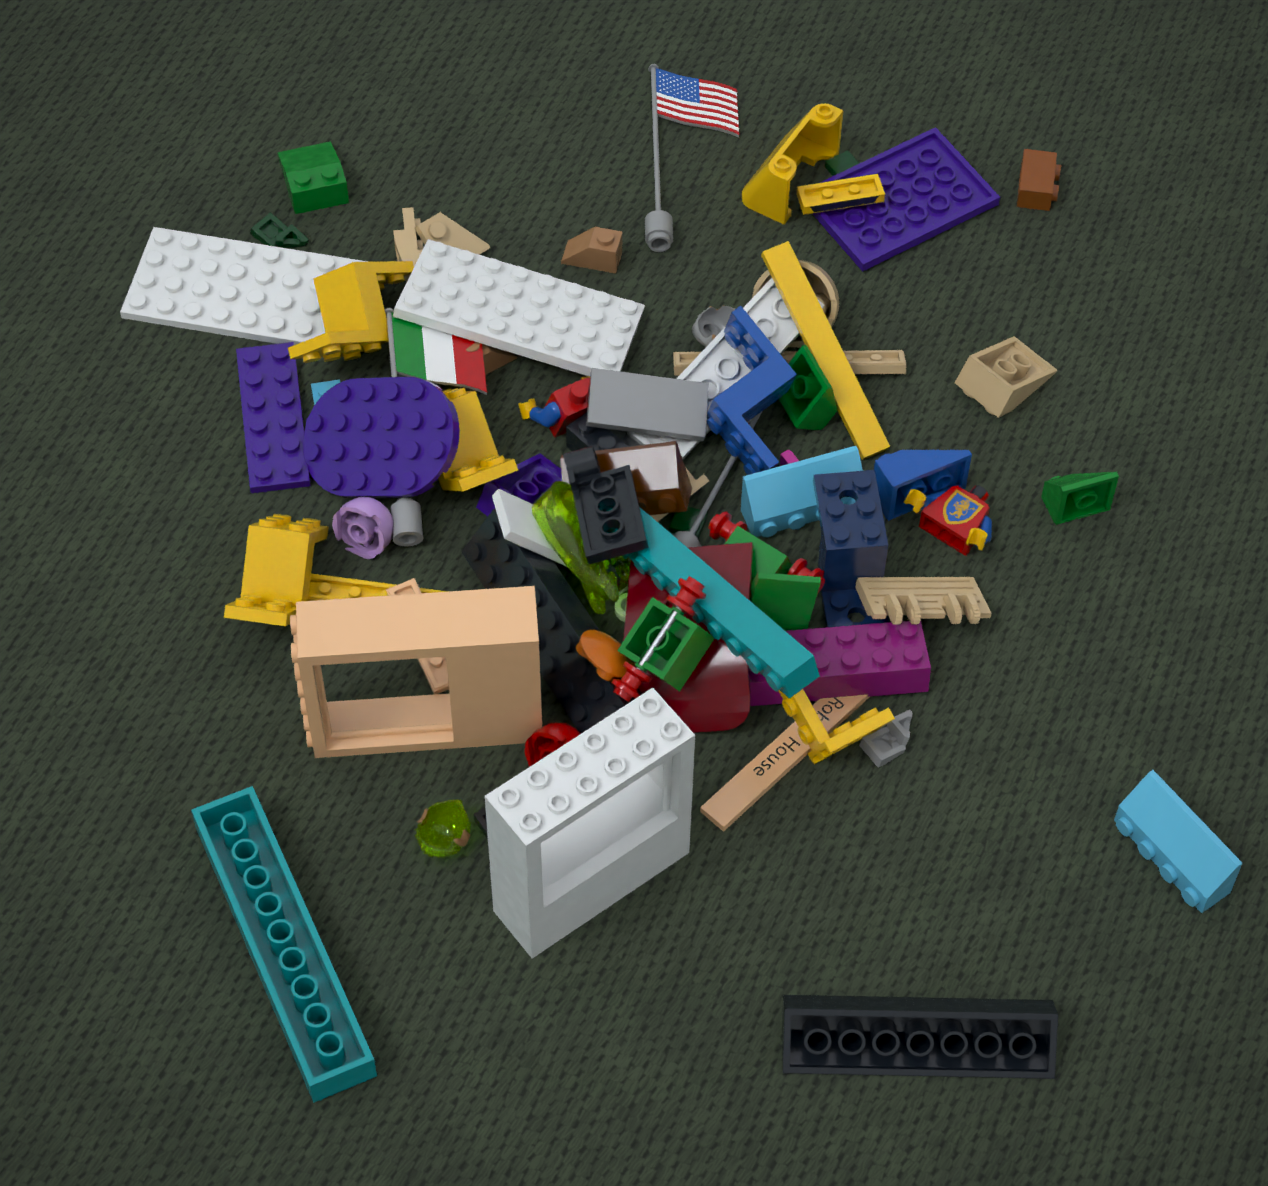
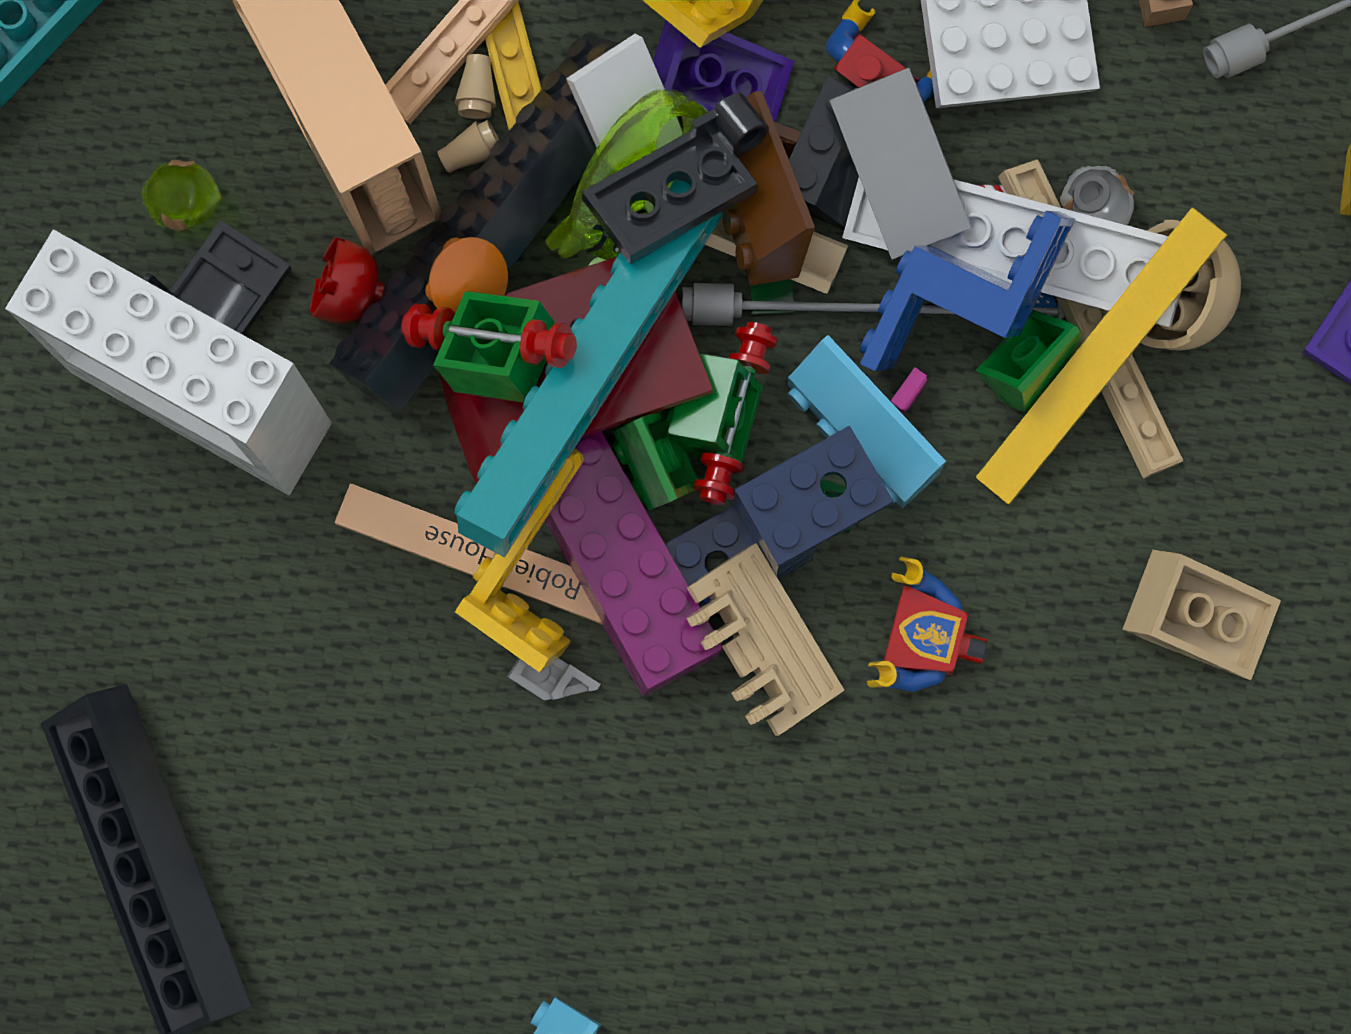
camera: 70 degrees right, 25 degrees up
(919, 470) = (949, 553): blue slope -> none
(1079, 495) = (1030, 777): green slope -> none

